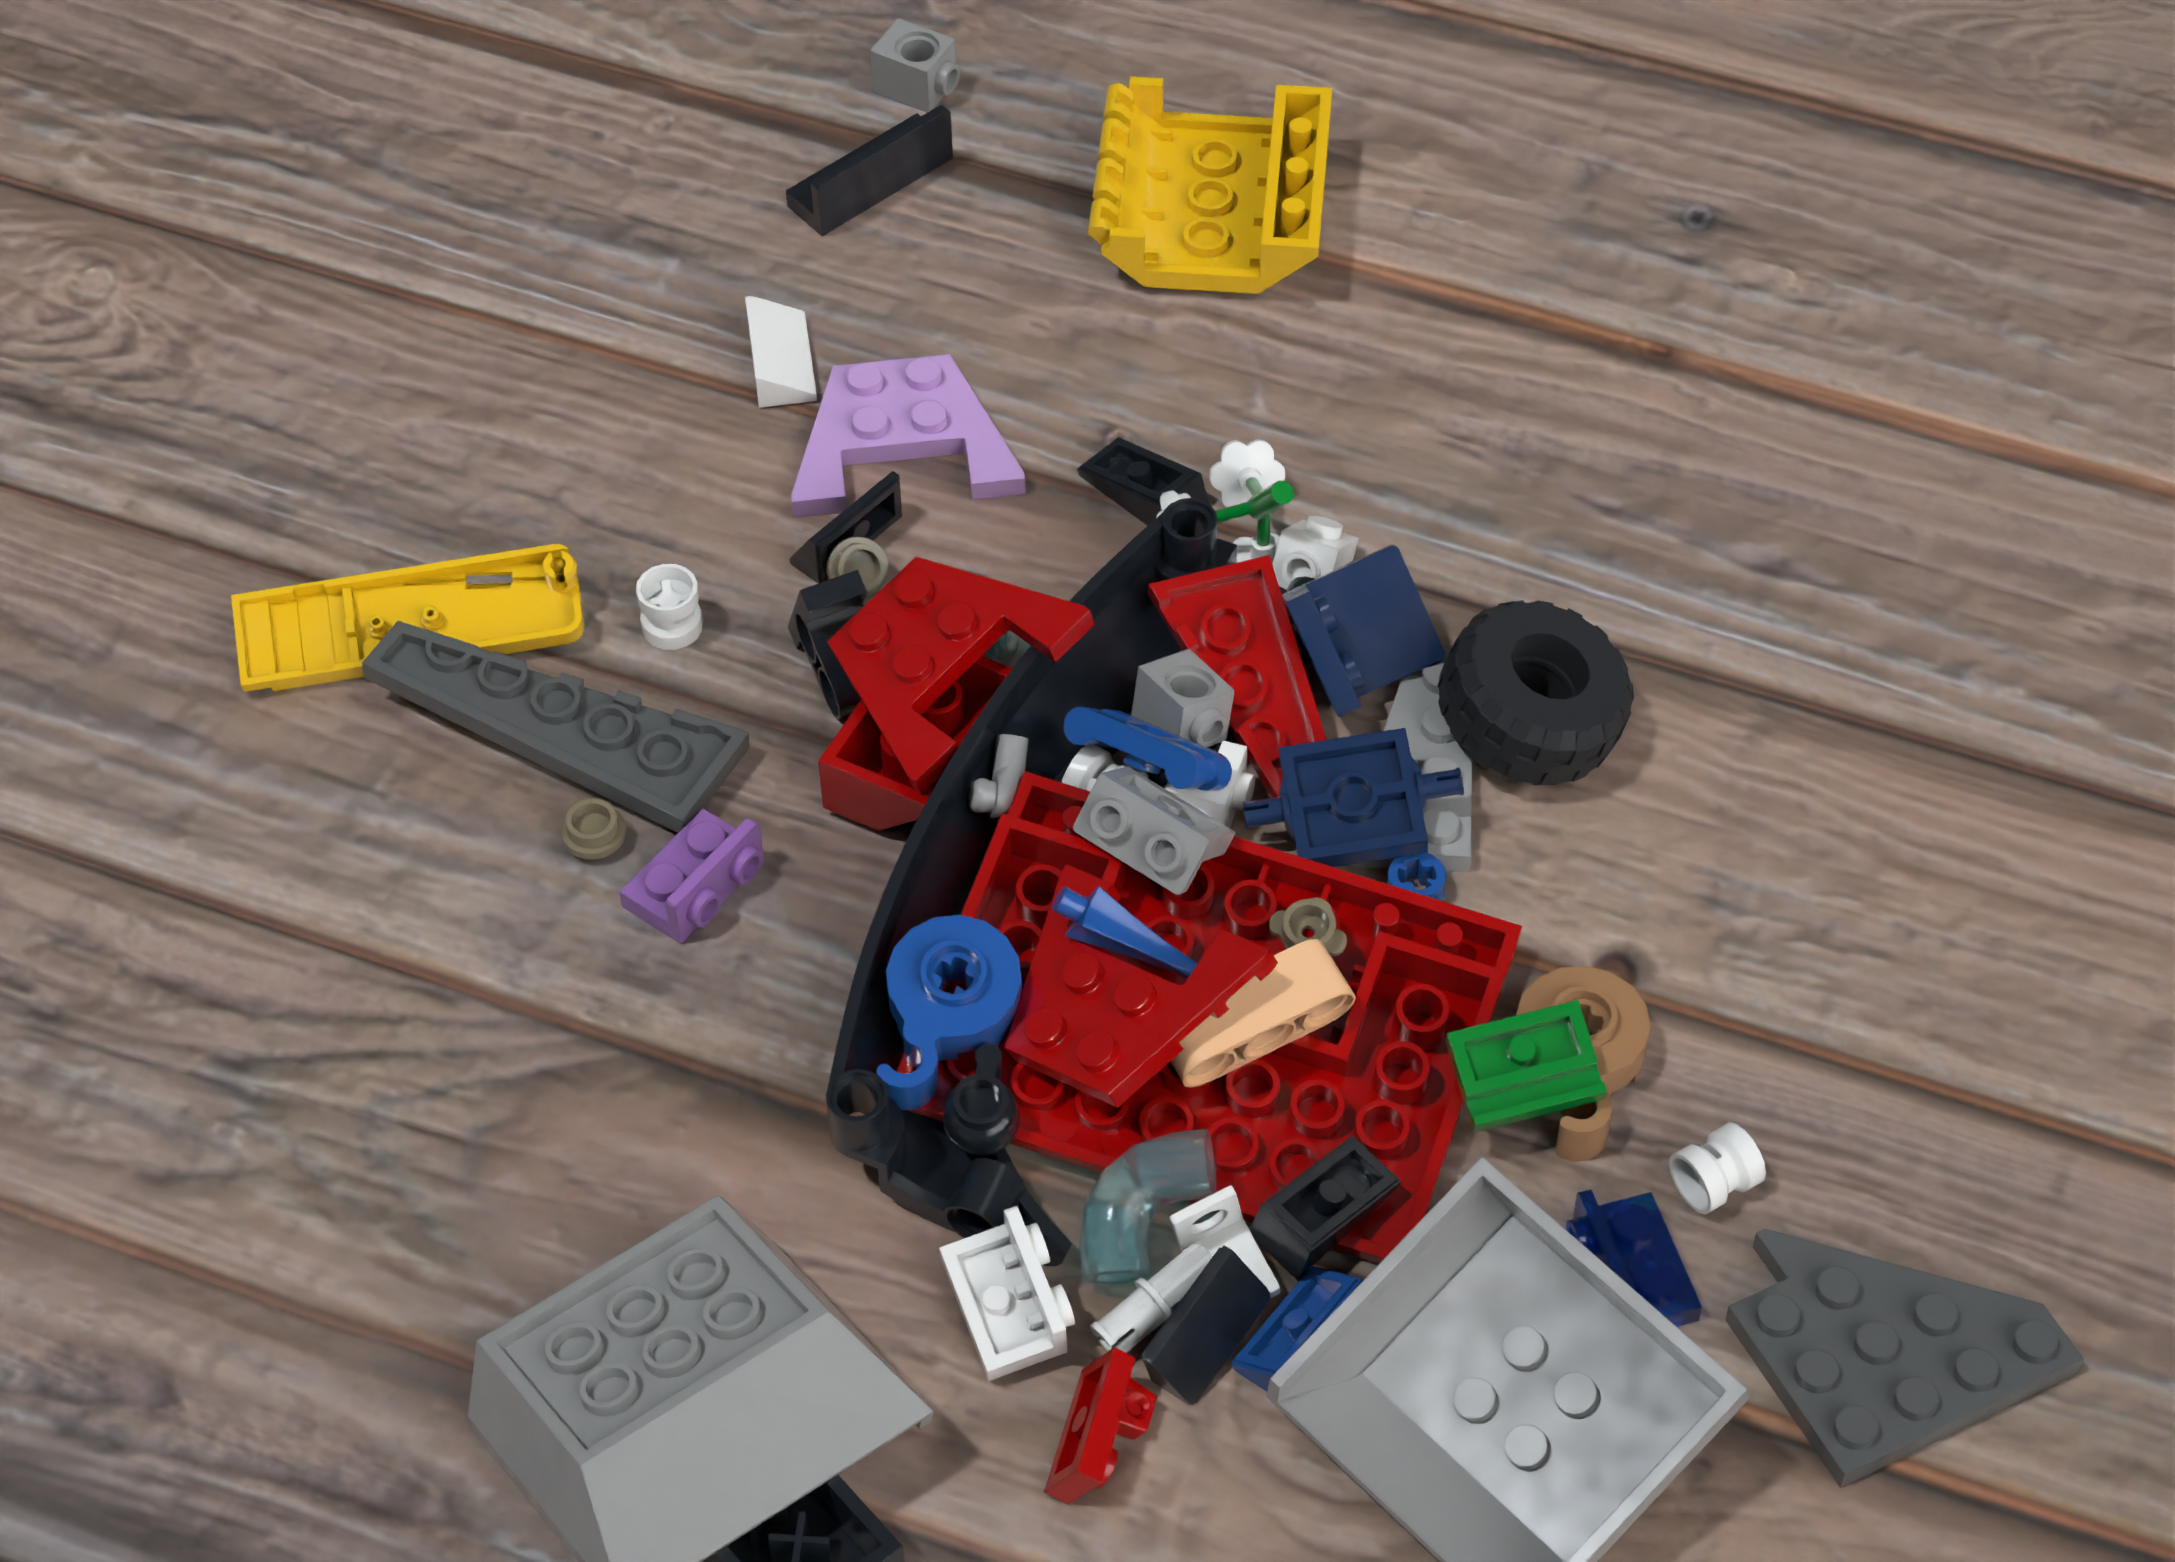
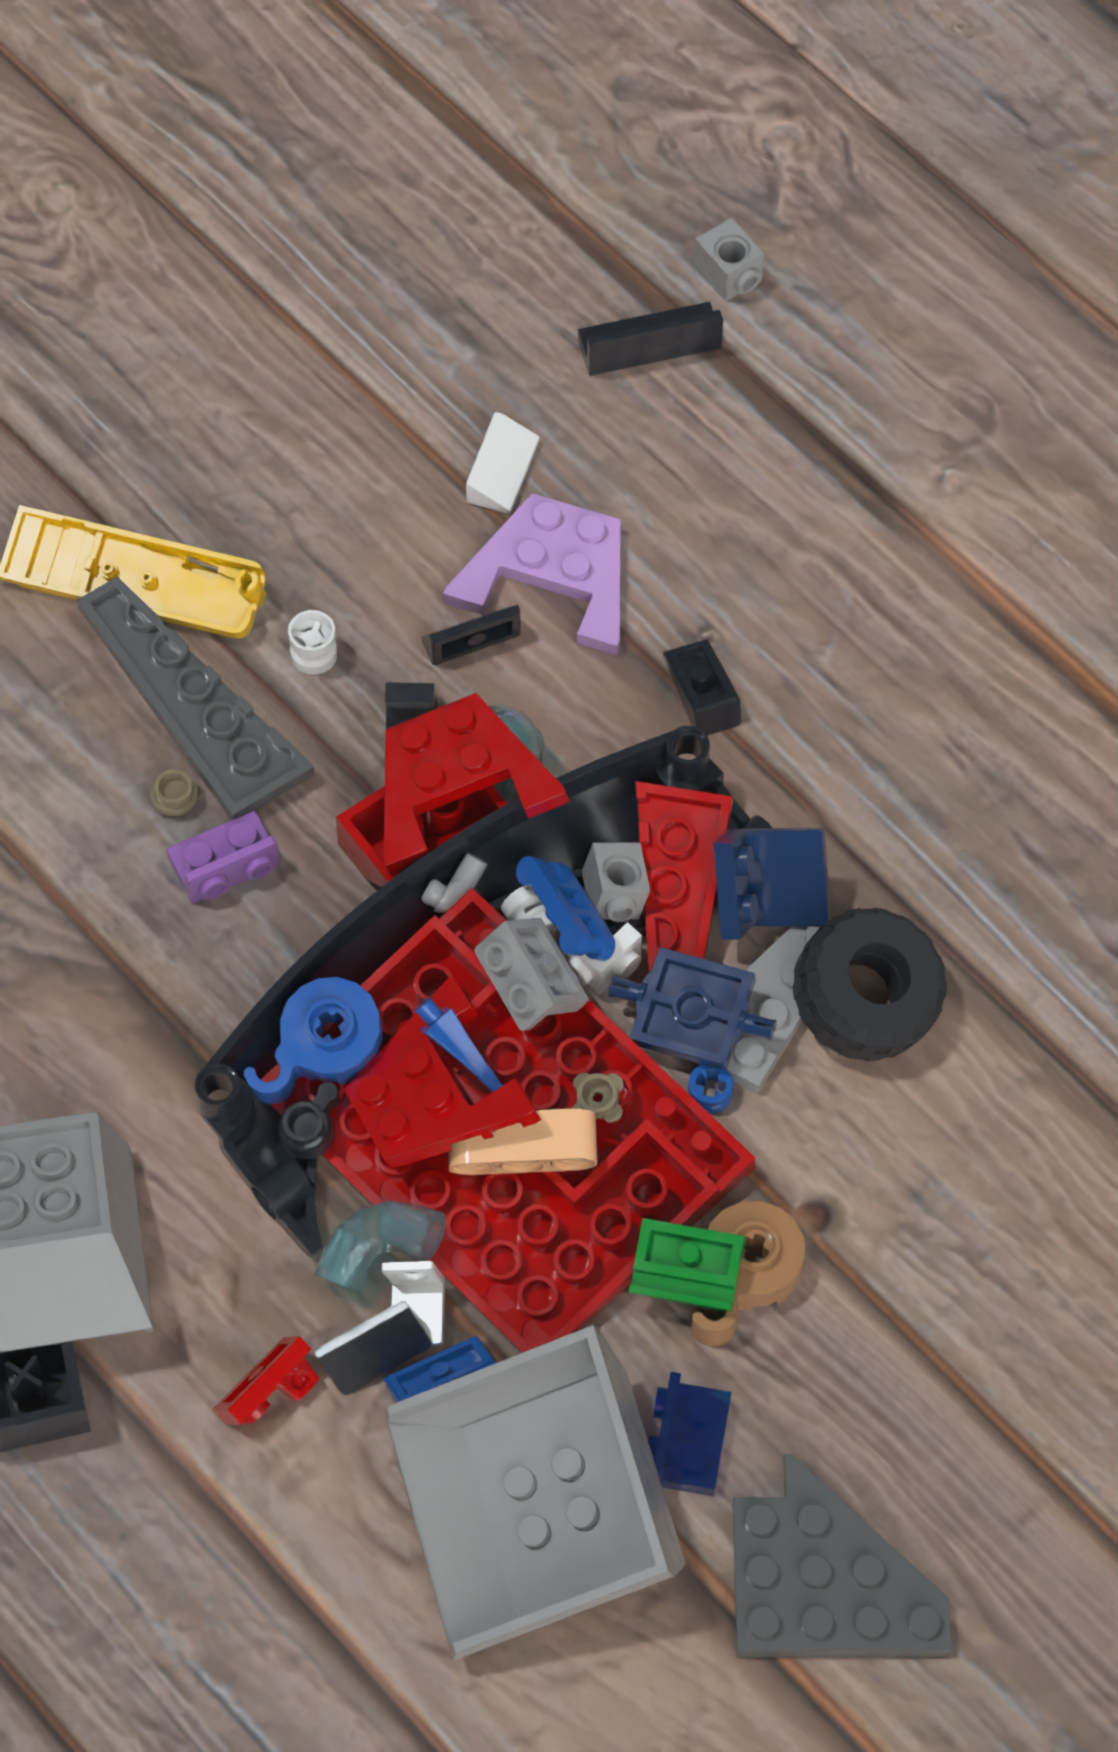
camera: 25 degrees right, 10 degrees up
(859, 555) = (460, 666): dark tan plate -> none
(1007, 1296) = (256, 1265): white bracket -> none
(1151, 1301) = (348, 1313): white axle -> none
(1210, 194) = (881, 460): yellow slope -> none
(1249, 485) = (773, 717): white plant -> none
(1312, 549) = (786, 797): white bracket -> none
(1322, 1205) = (501, 1298): black slope -> none
(1717, 1168) = (785, 1396): white wheel -> none

